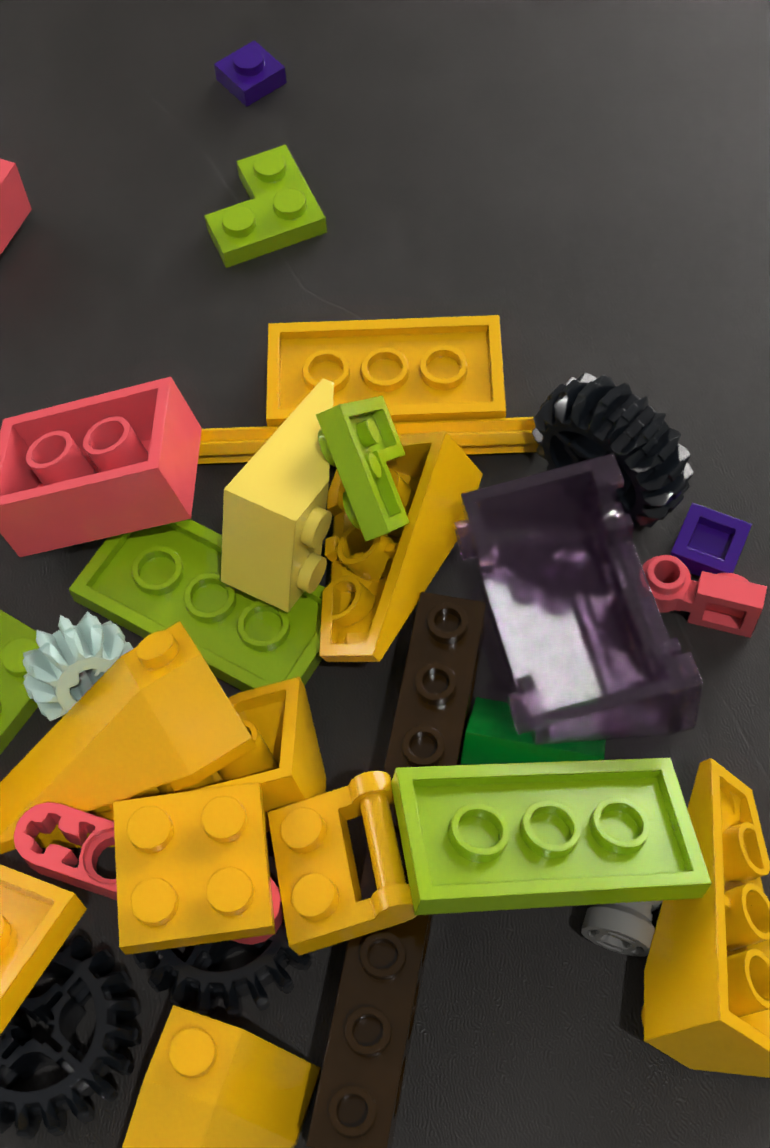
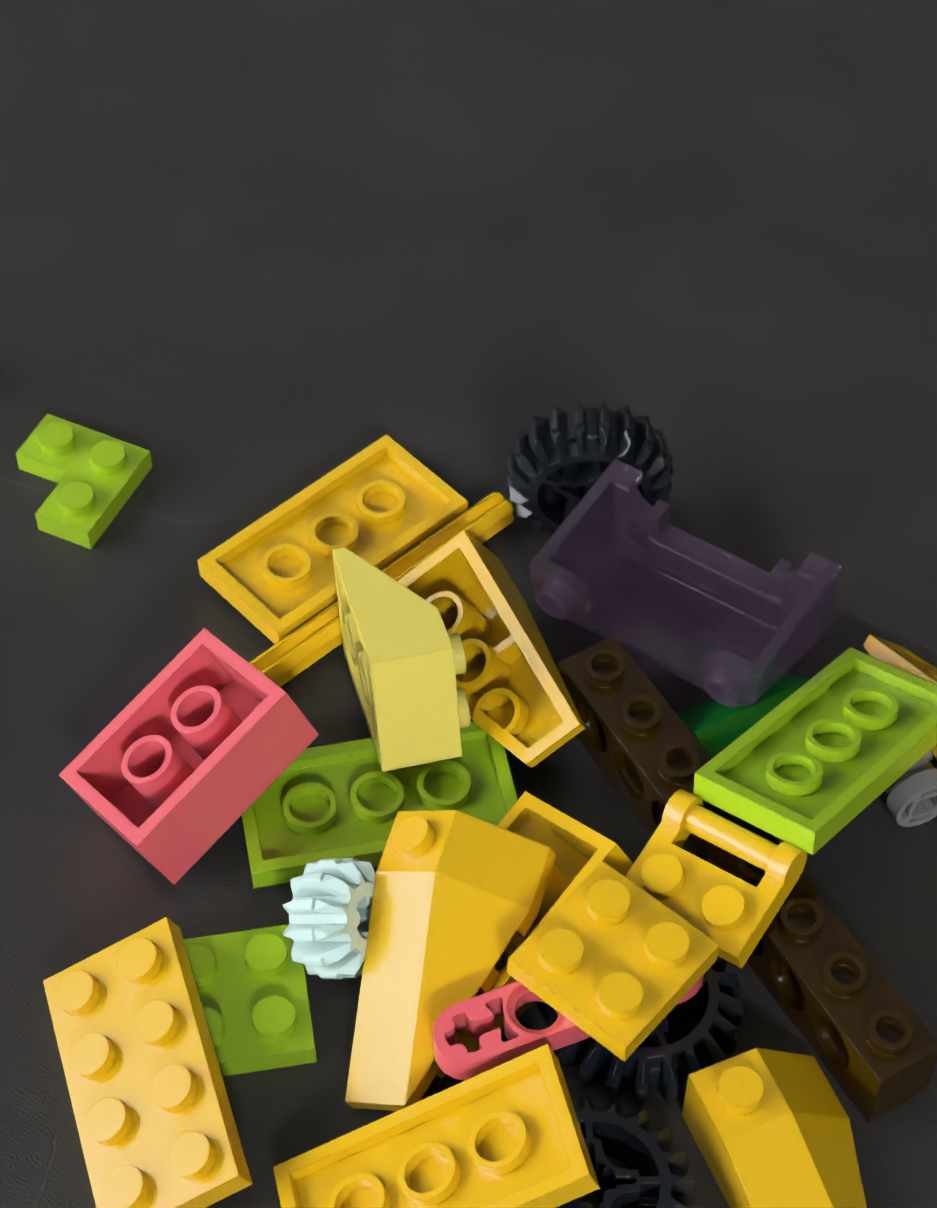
camera: 45 degrees left, 10 degrees down
(359, 442) = (427, 574): lime plate -> none
(710, 541) = (712, 499): dark purple plate -> none
(715, 601) = (761, 531): coral plate -> none

